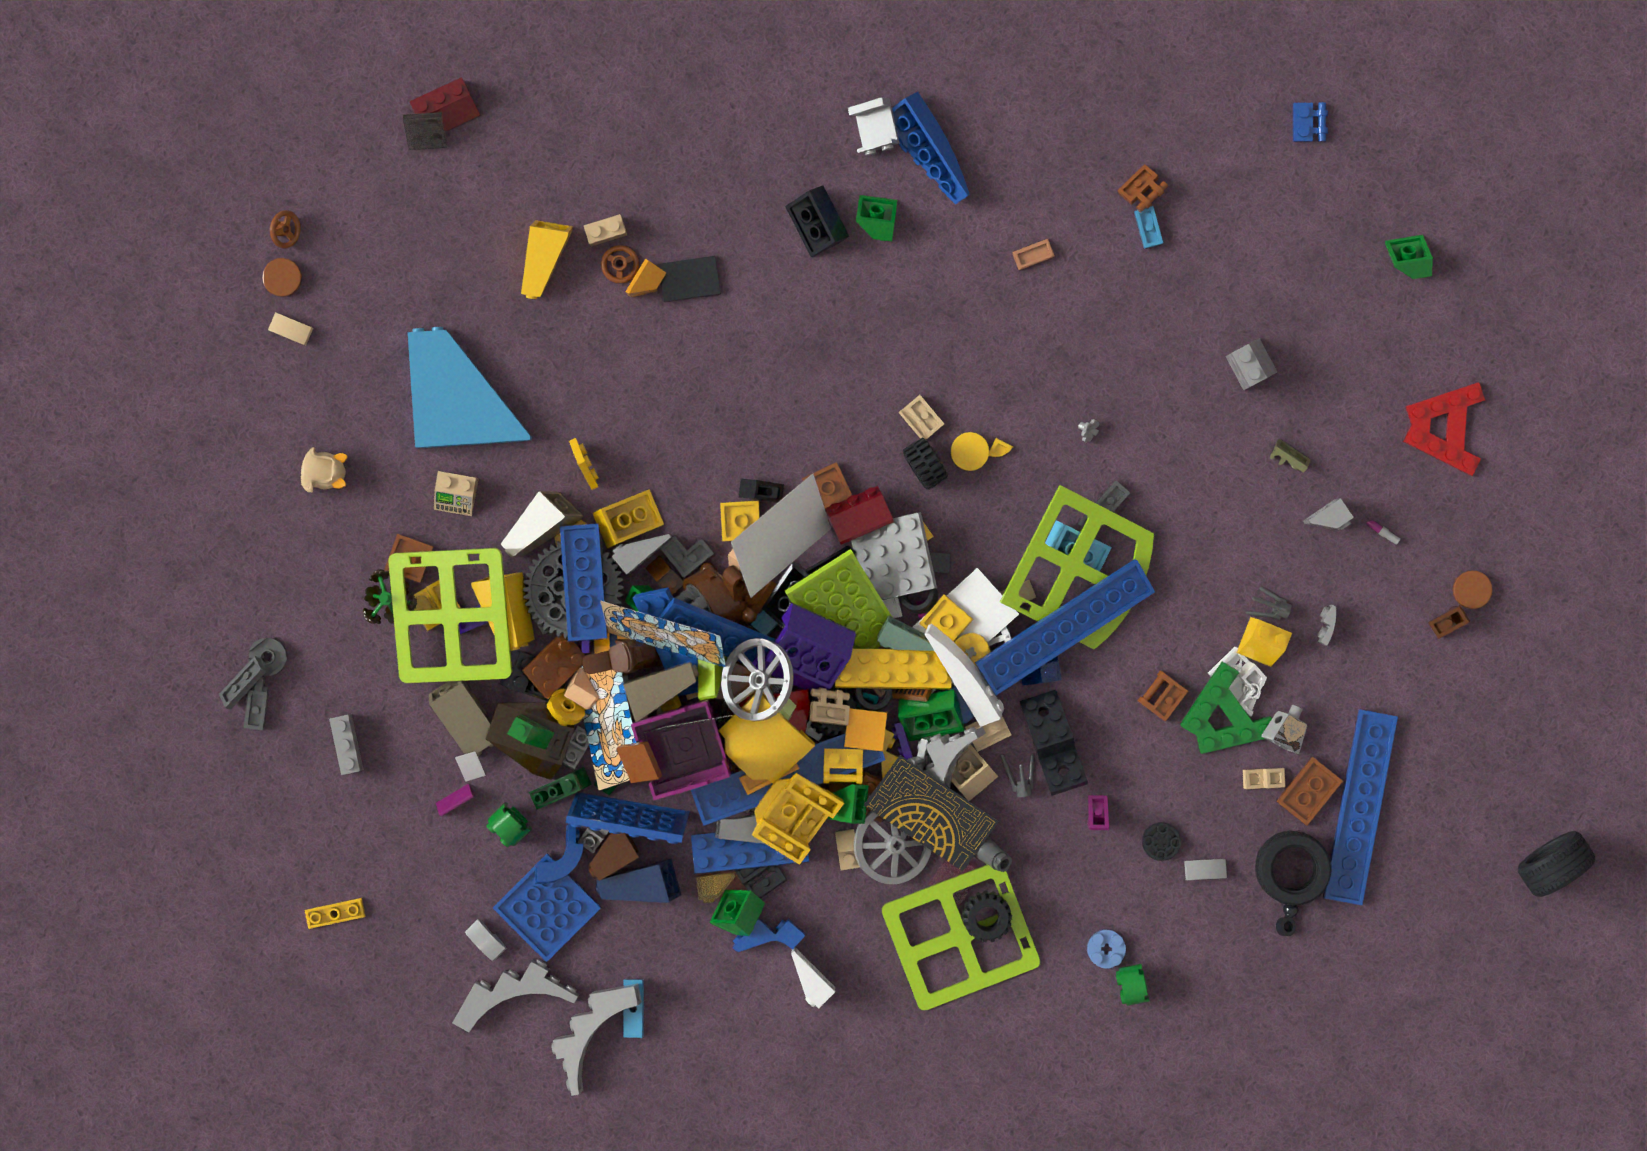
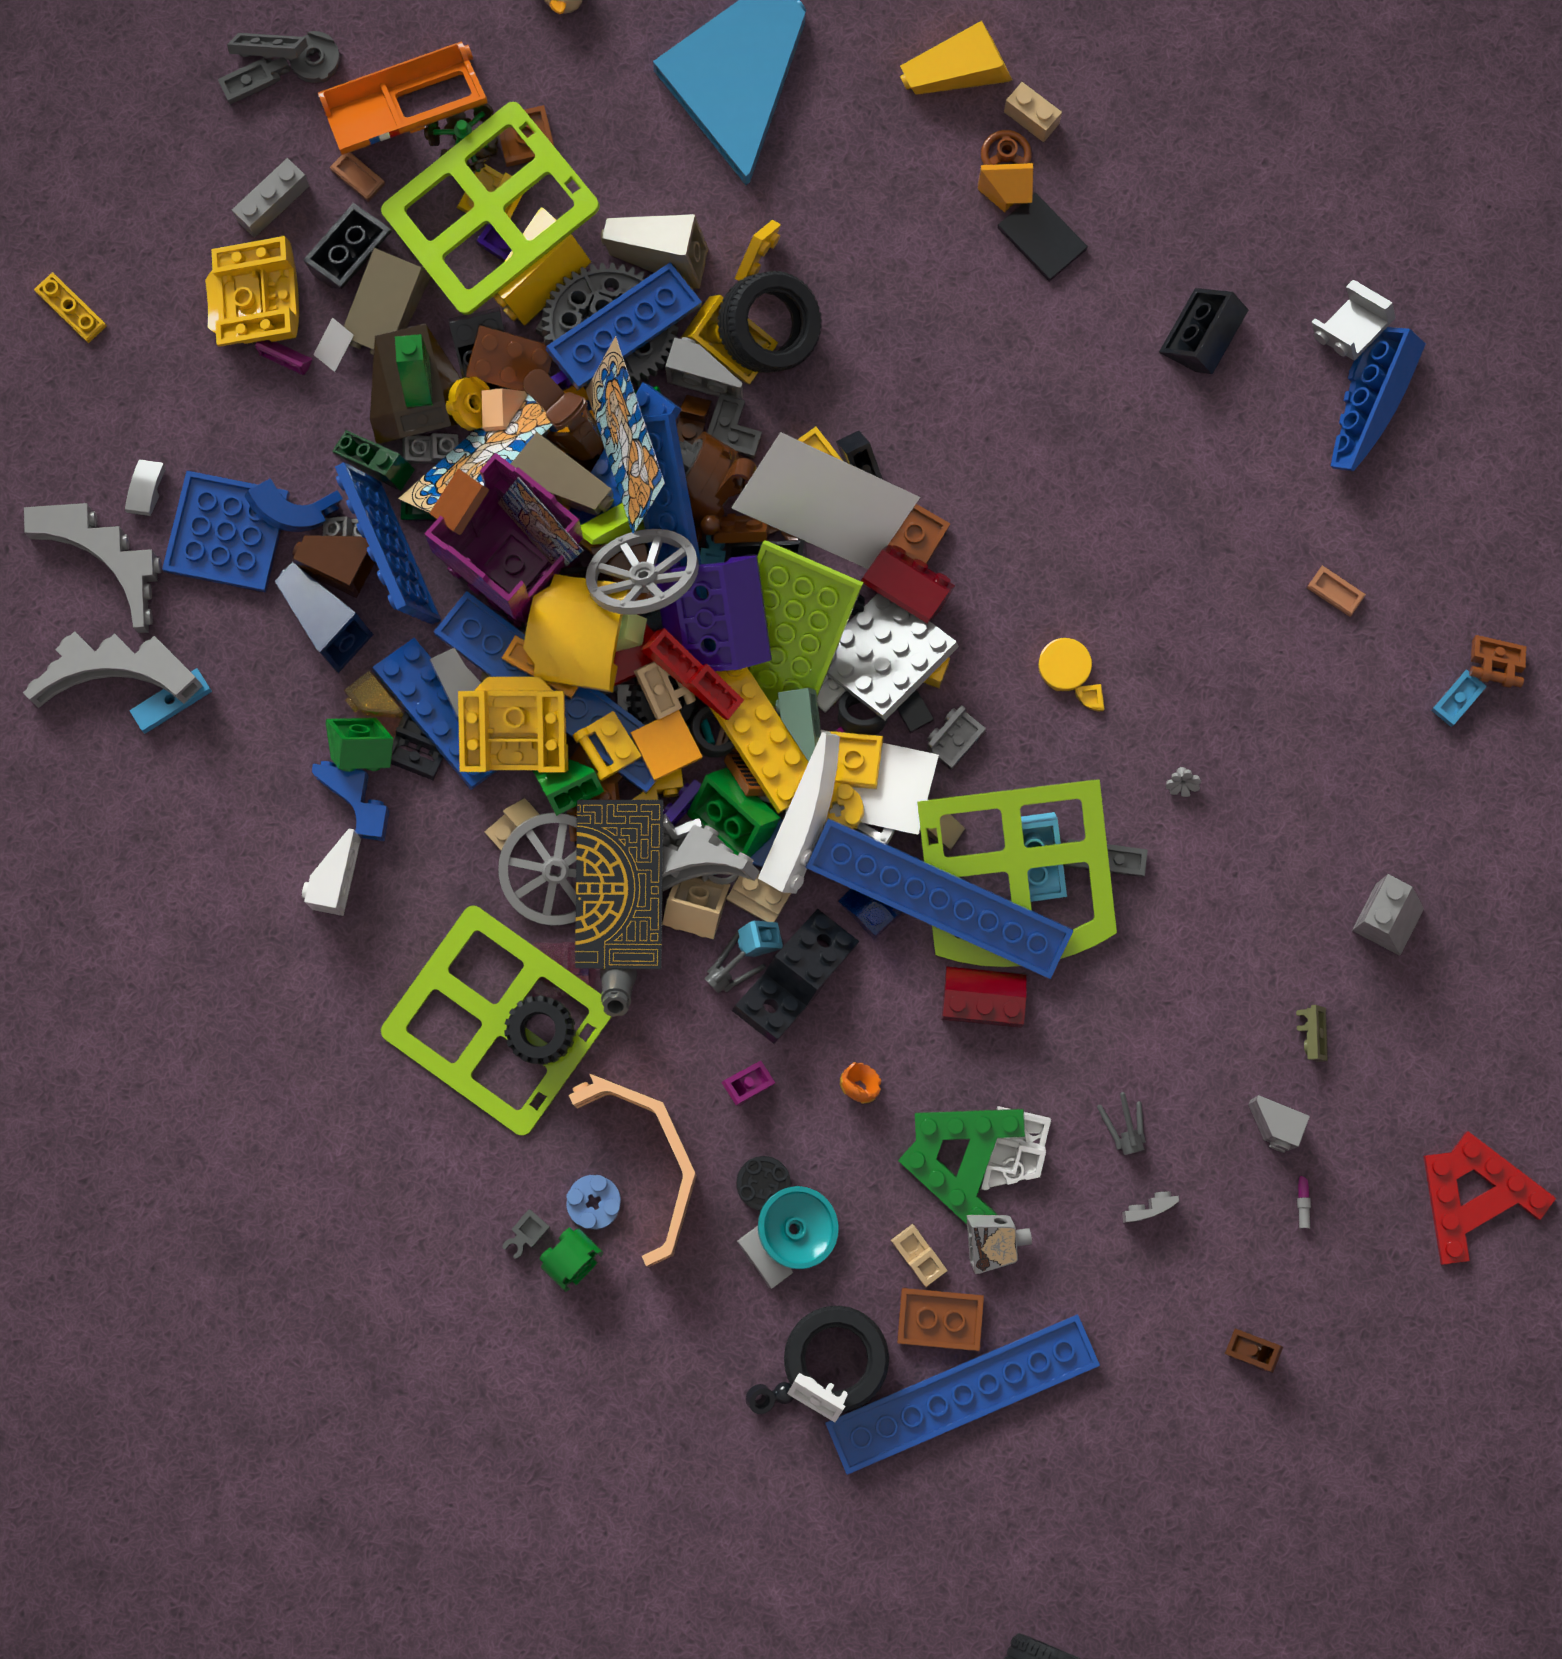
camera: 55 degrees right, 10 degrees down
(327, 647) = (368, 108): none -> orange piece
(365, 679) = (357, 176): none -> nougat tile
(404, 795) = (253, 292): none -> yellow slope
(414, 718) = (346, 247): none -> black slope
(455, 493) = (631, 138): tan slope -> none
(508, 825) = (293, 426): green brick -> none
(661, 478) = (804, 317): none -> black tyre
(835, 687) = (688, 671): none -> red slope
(877, 216) = (1255, 391): green slope -> none
(921, 418) = (1065, 586): tan plate -> none
(925, 463) = (1017, 618): black tyre -> none
(971, 548) = (955, 737): none -> flat silver bracket
(1017, 748) = (759, 938): none -> medium azure slope
(1044, 901) = (587, 1093): none -> light nougat panel
(1098, 998) = (528, 1230): none -> dark grey plate
(1138, 637) = (984, 997): none -> dark red slope
(1145, 751) = (866, 1075): none -> orange hair
(1167, 700) = (935, 1079): dark orange plate -> none
(1215, 839) = (815, 1224): none -> teal dish
(1263, 642) = (1078, 1145): yellow slope -> none
(1313, 896) = (819, 1399): none -> white plate
(1472, 589) = (1310, 1355): dark orange tile -> none

